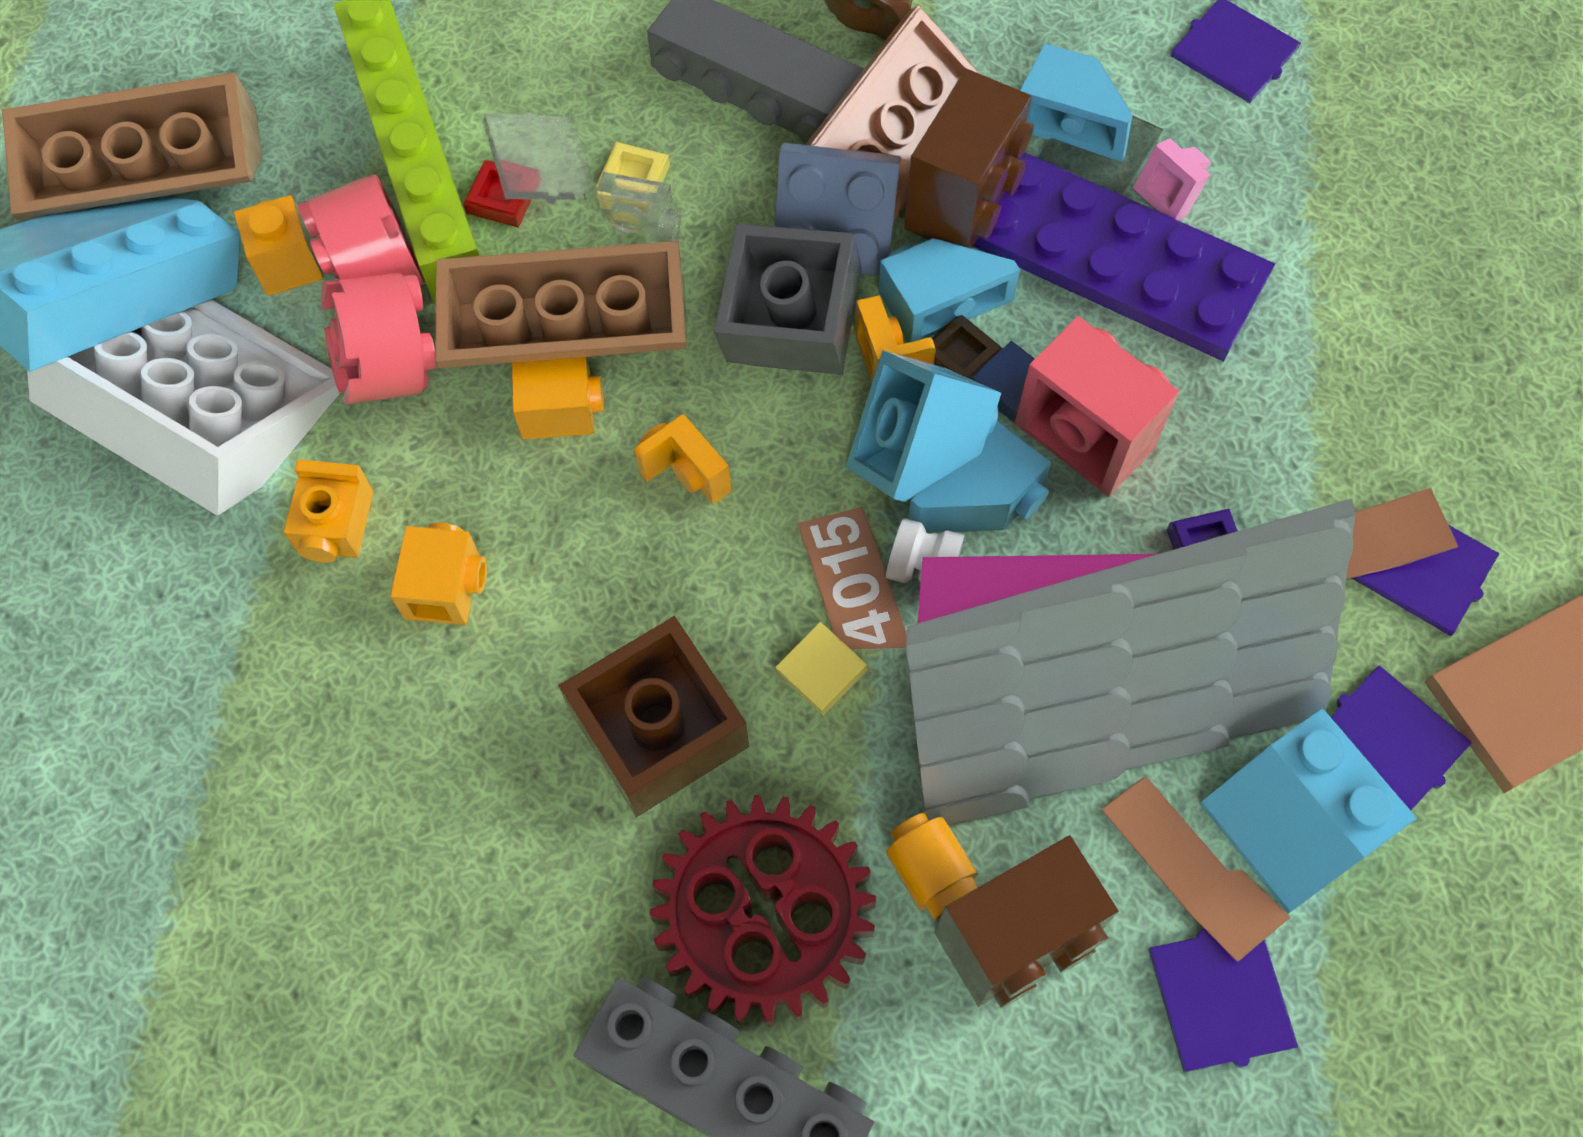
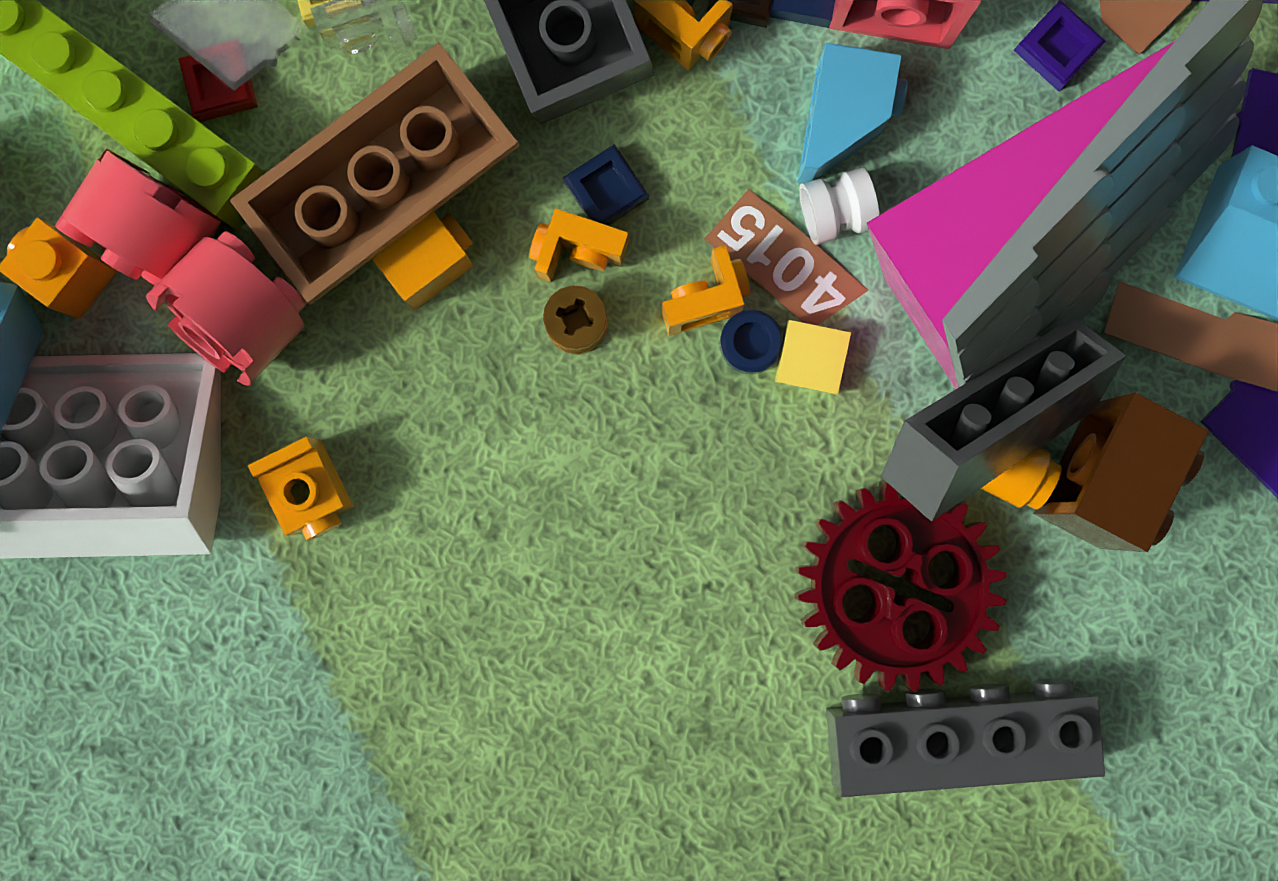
camera: 35 degrees left, 20 degrees up
(438, 574) = (441, 481): light orange brick -> none
(642, 531) = (581, 335): none -> pearl gold wheel
(655, 715) = (718, 490): reddish brown brick -> none
(743, 434) = (606, 187): none -> dark blue tile
(758, 568) = (698, 305): none -> light orange bracket
(777, 624) = (751, 342): none -> dark blue tile
(919, 425) = (771, 91): medium azure slope -> none
(936, 785) = (1000, 417): none -> dark grey brick

